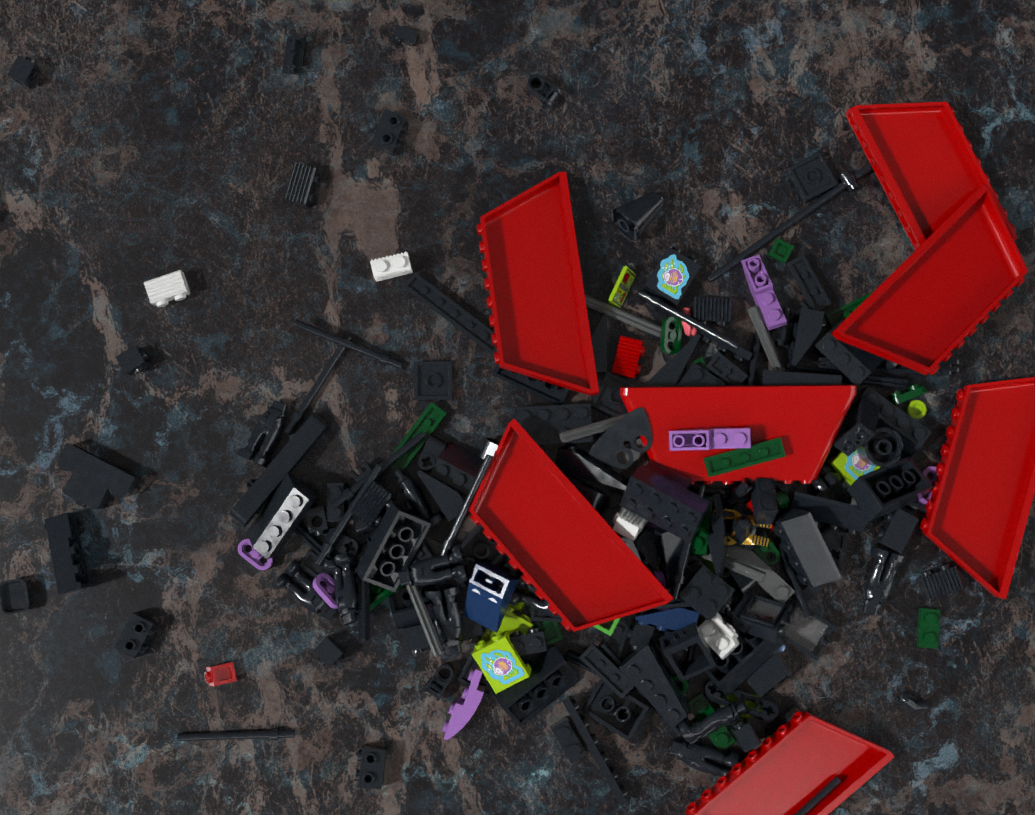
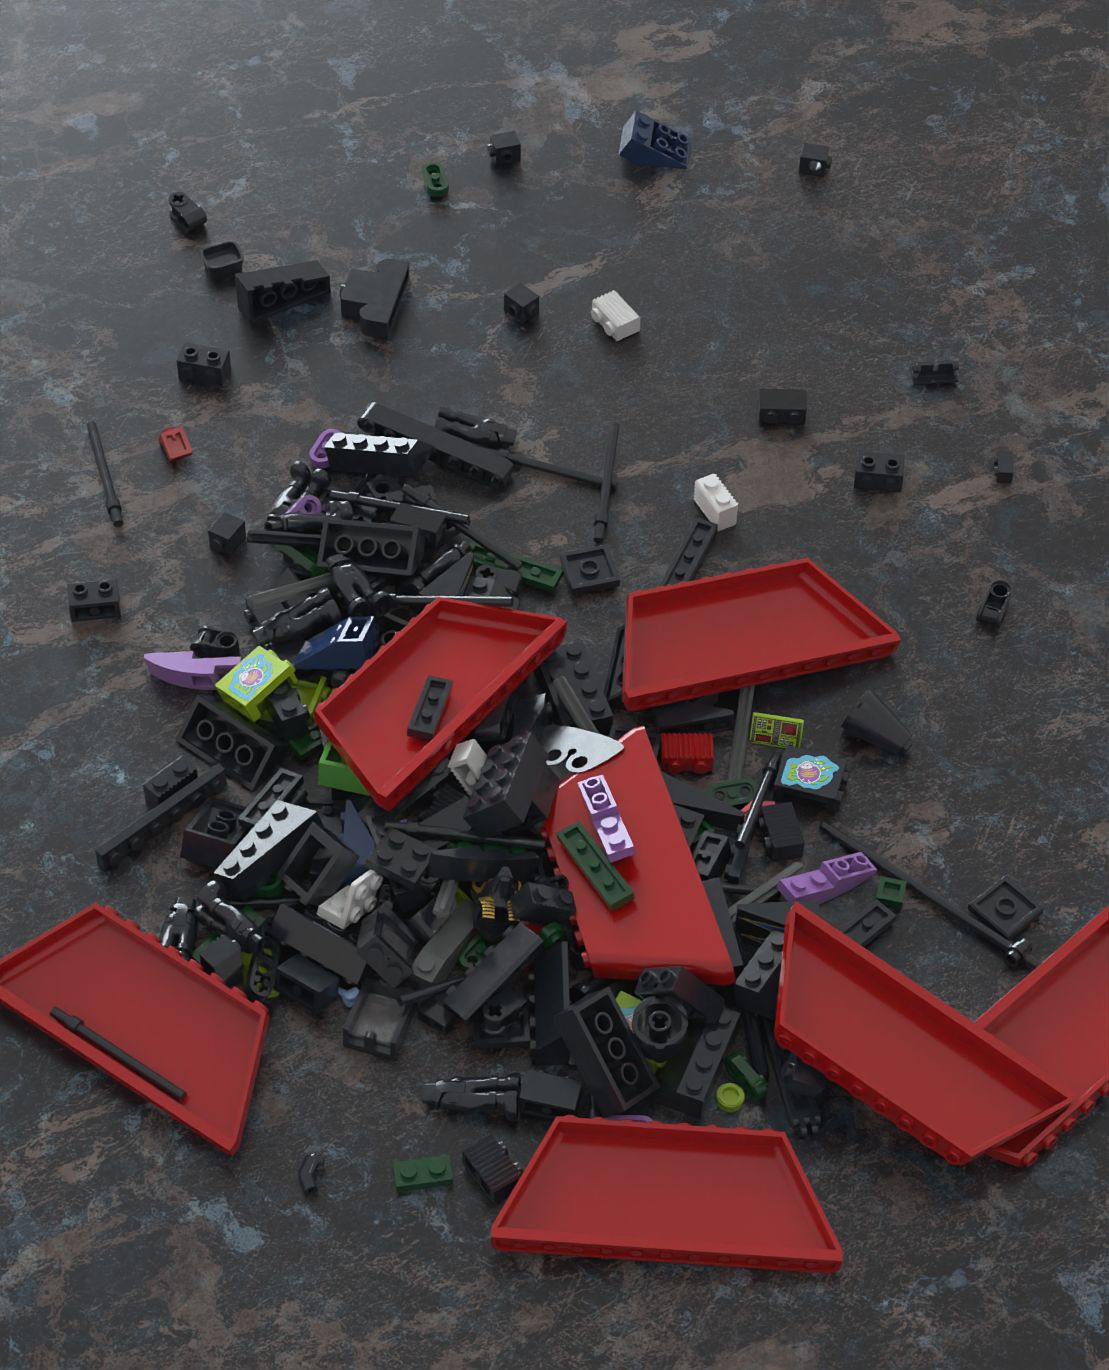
camera: 70 degrees right, 35 degrees down
(580, 542) = (429, 708): none -> black plate

